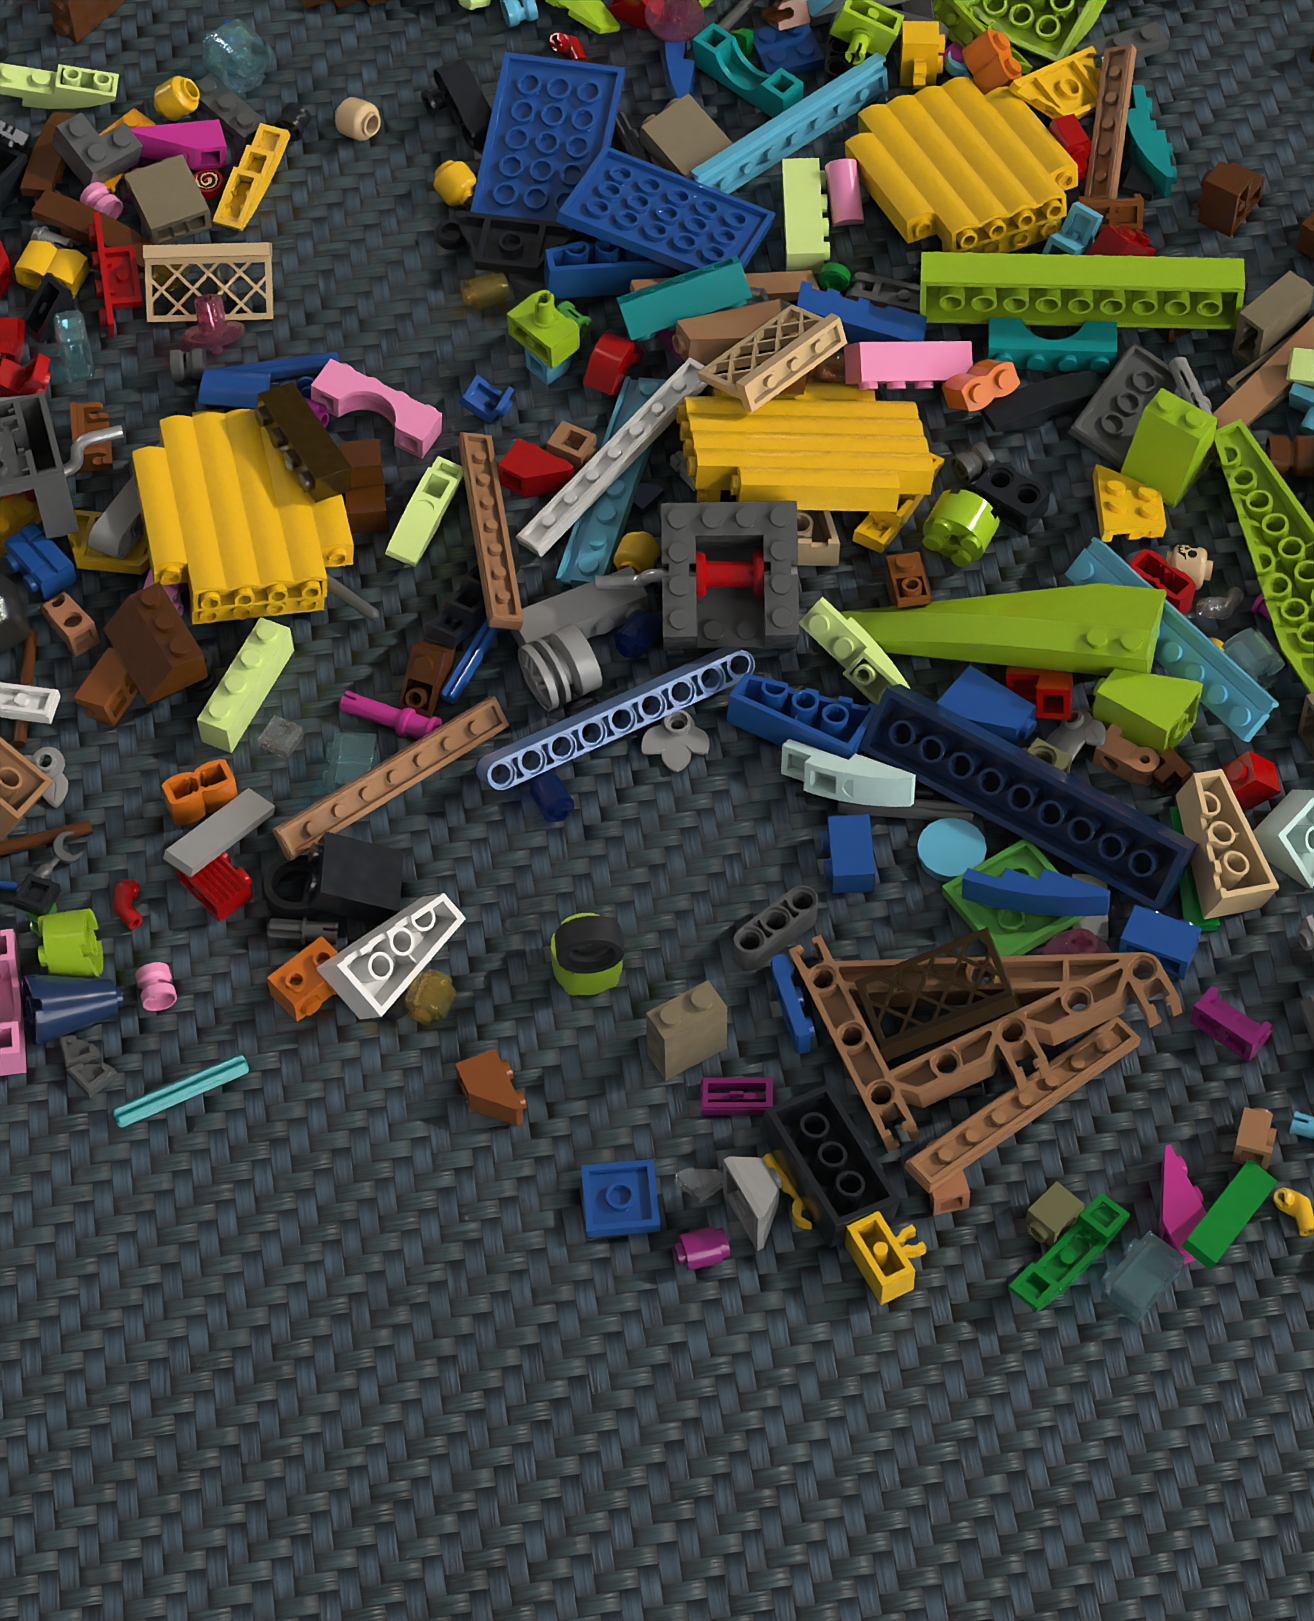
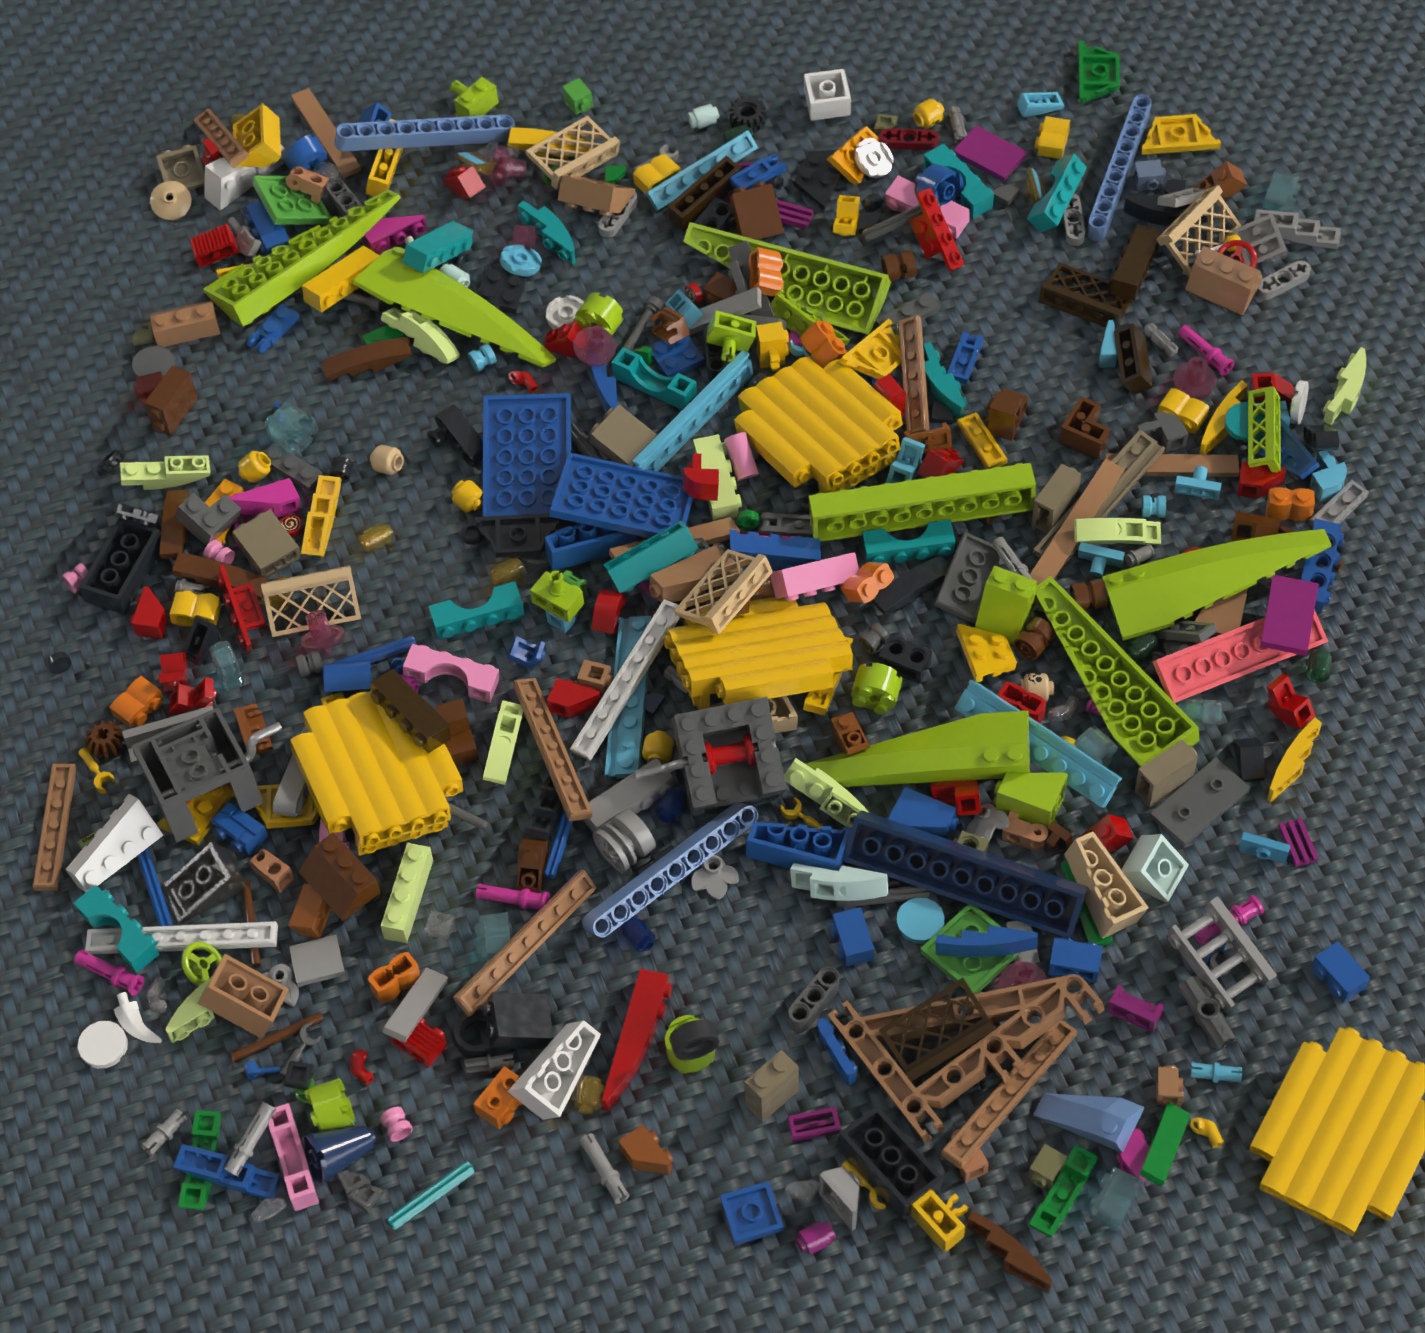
camera: 10 degrees left, 0 degrees up
(102, 752) = (317, 960): none -> light grey slope
(319, 215) = (376, 536): none -> clear yellow brick
(432, 1112) = (608, 1175): none -> light grey pin
(466, 334) = (452, 620): none -> teal arch
(518, 927) = (638, 1031): none -> red slope
(777, 213) = (699, 482): none -> red brick
(812, 675) = (797, 812): none -> yellow piece
(980, 1330) = (1017, 1258): none -> reddish brown slope
(1139, 1160) = (1097, 1118): none -> medium blue wedge
(1185, 225) = (982, 441): none -> yellow tile
(1190, 114) = (965, 357): none -> blue plate
(1200, 502) = (1035, 638): none -> reddish brown wheel

